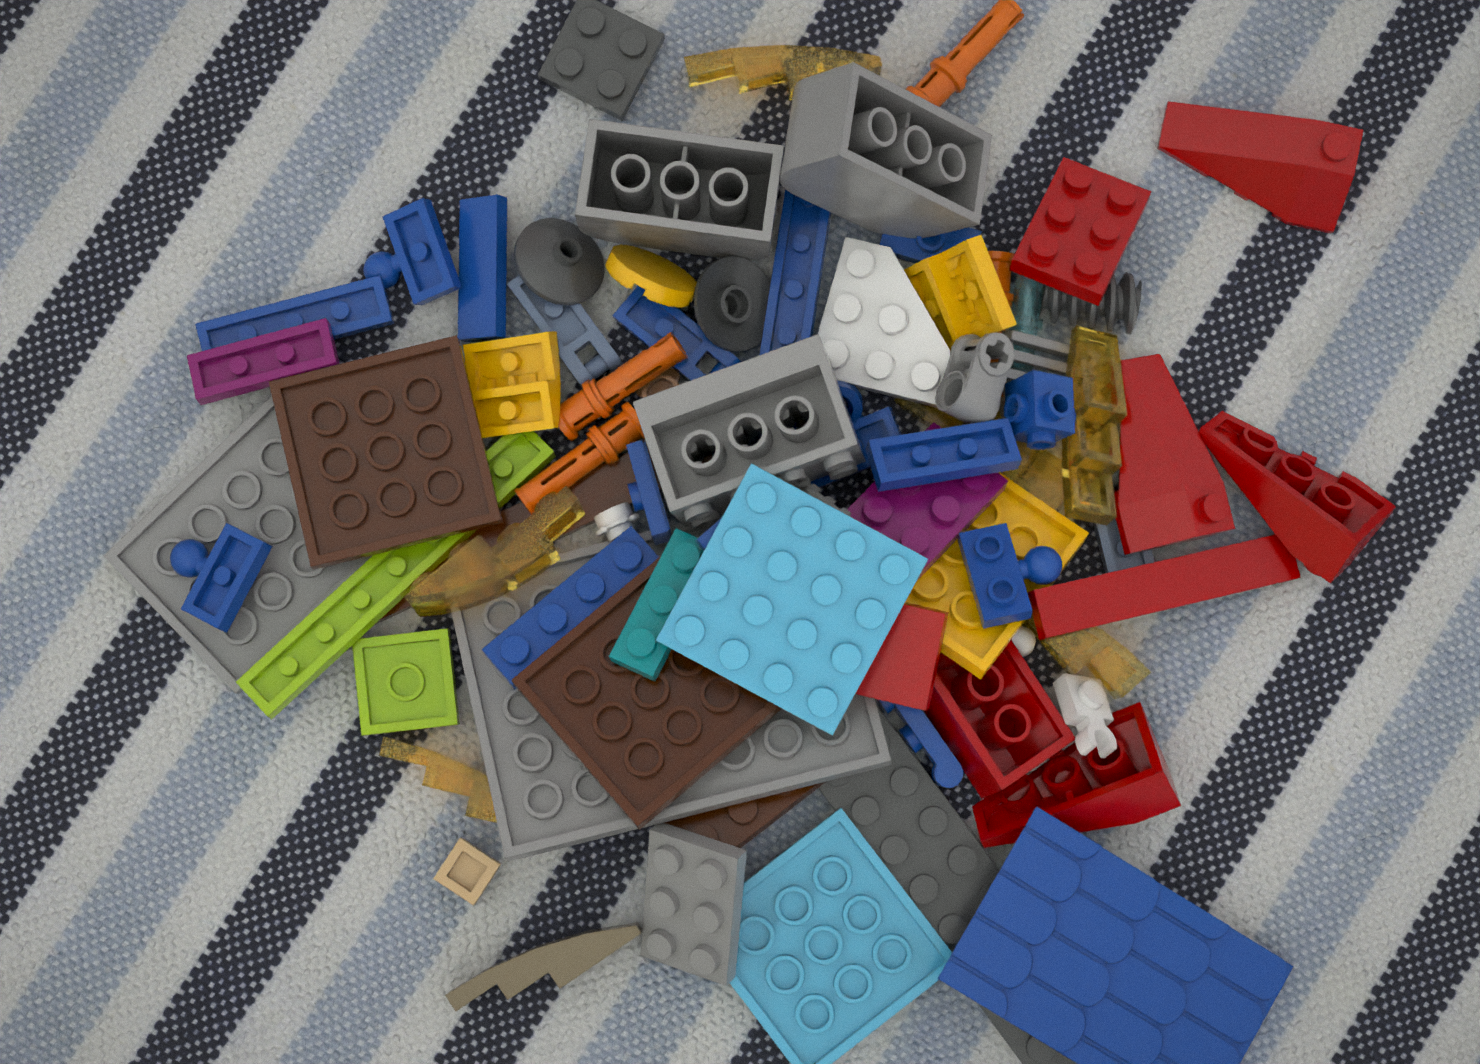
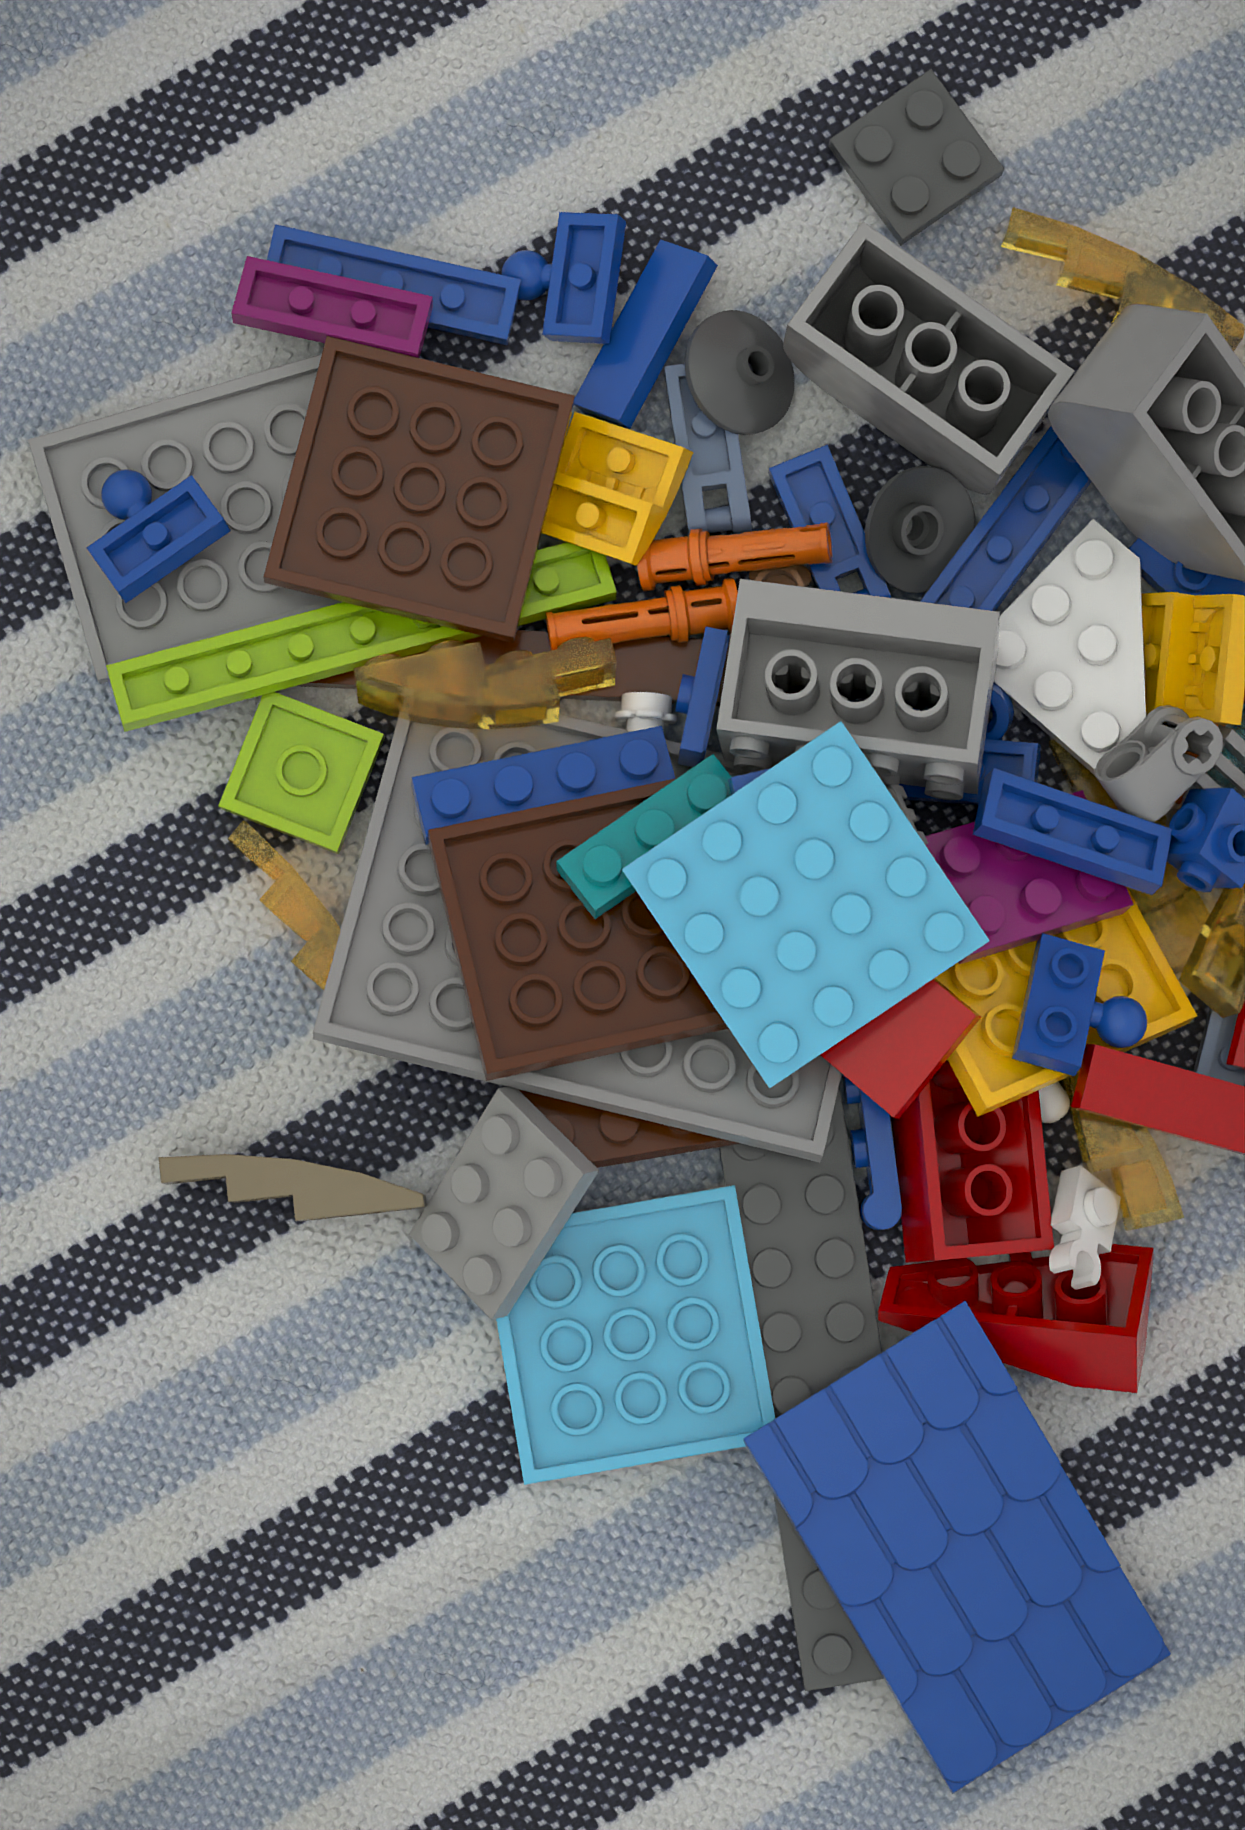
camera: 25 degrees right, 0 degrees up
(467, 871) = (258, 1029): tan plate -> none
(659, 277) = (846, 449): yellow tile -> none

